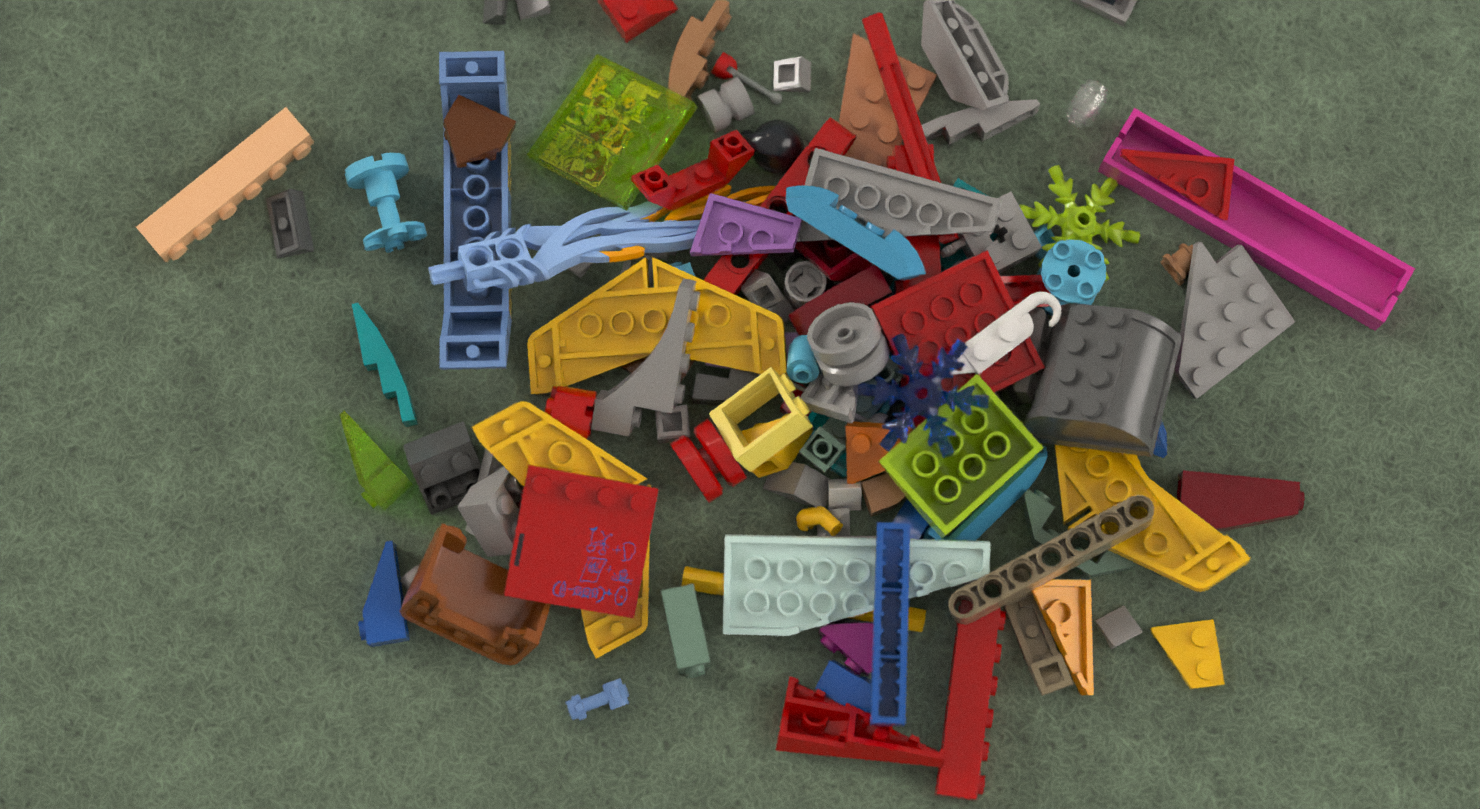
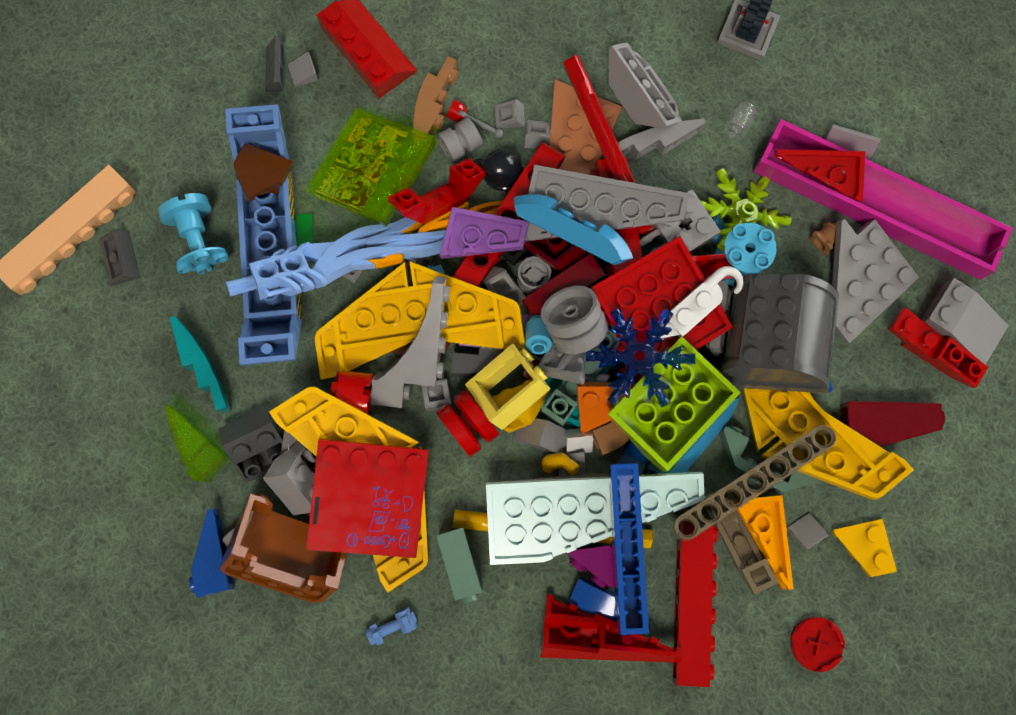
camera: 10 degrees left, 0 degrees up
(522, 205) = (304, 228): none -> green piece
(825, 103) = (537, 133): none -> light grey slope
(1117, 764) = (817, 644): none -> red tile
(1227, 142) = (852, 140): none -> light grey slope
(1305, 414) = (936, 350): none -> red slope
(1347, 383) = (966, 318): none -> light grey slope

